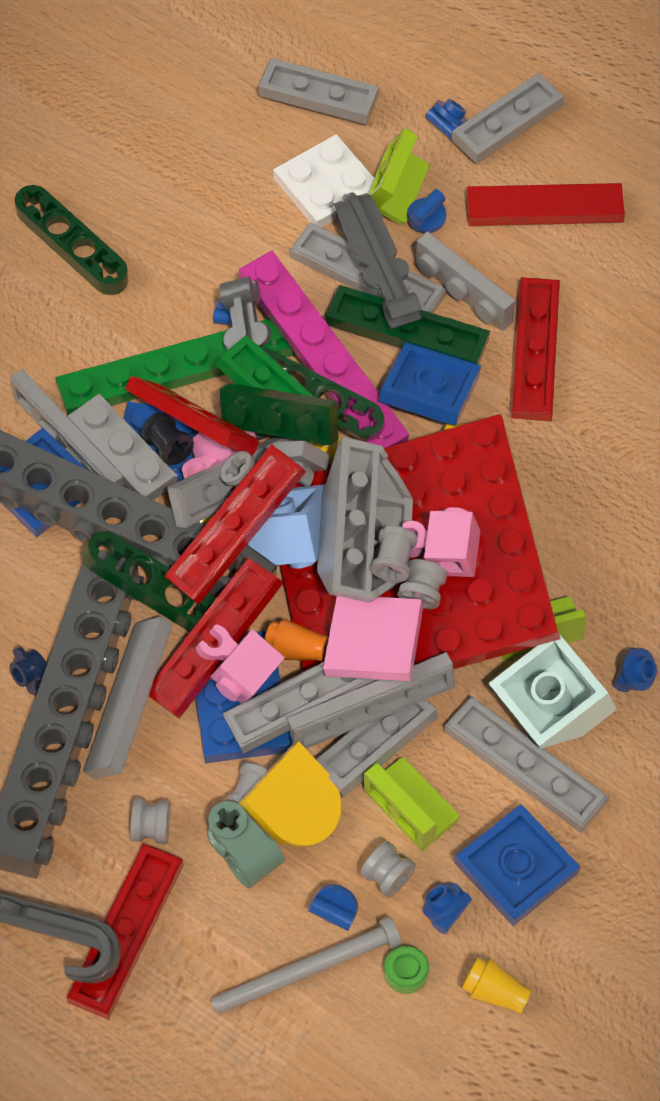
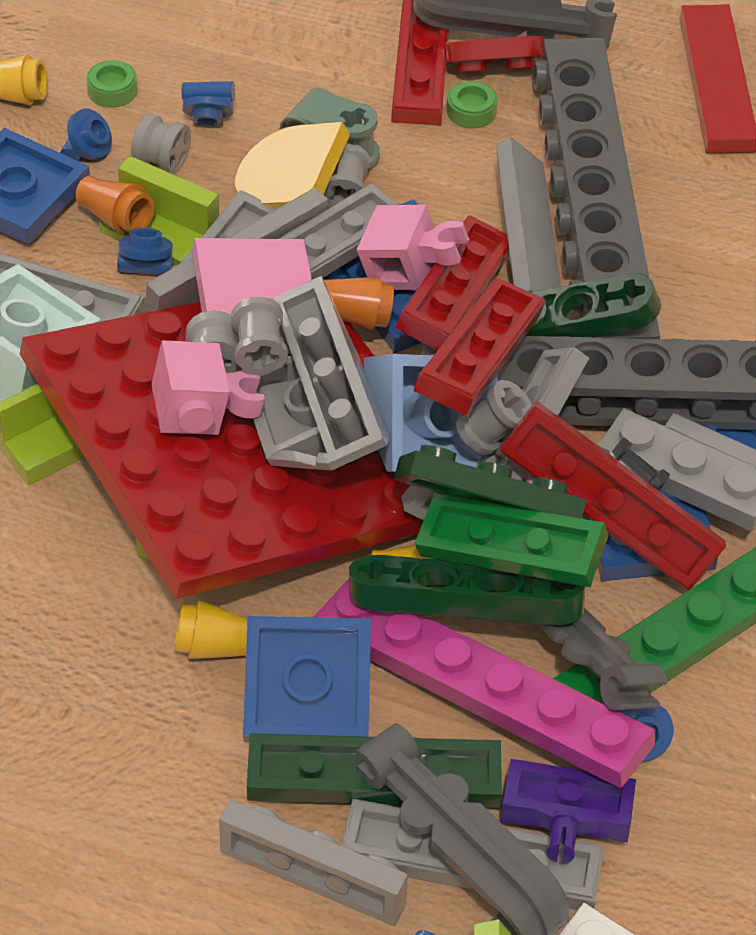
camera: 160 degrees right, 10 degrees down
(27, 669) = (660, 227): dark blue plate -> none
(71, 891) = (473, 54): none -> red plate
(111, 854) = (471, 104): none -> bright green tile
(150, 820) = (443, 125): light grey wheel -> none
(309, 271) = (567, 804): none -> dark purple plate
(309, 966) = (143, 98): light grey bar -> none
(432, 765) = (145, 252): none -> blue plate
(445, 808) = (116, 203): none -> orange cone
(535, 349) = (172, 812): red tile -> none

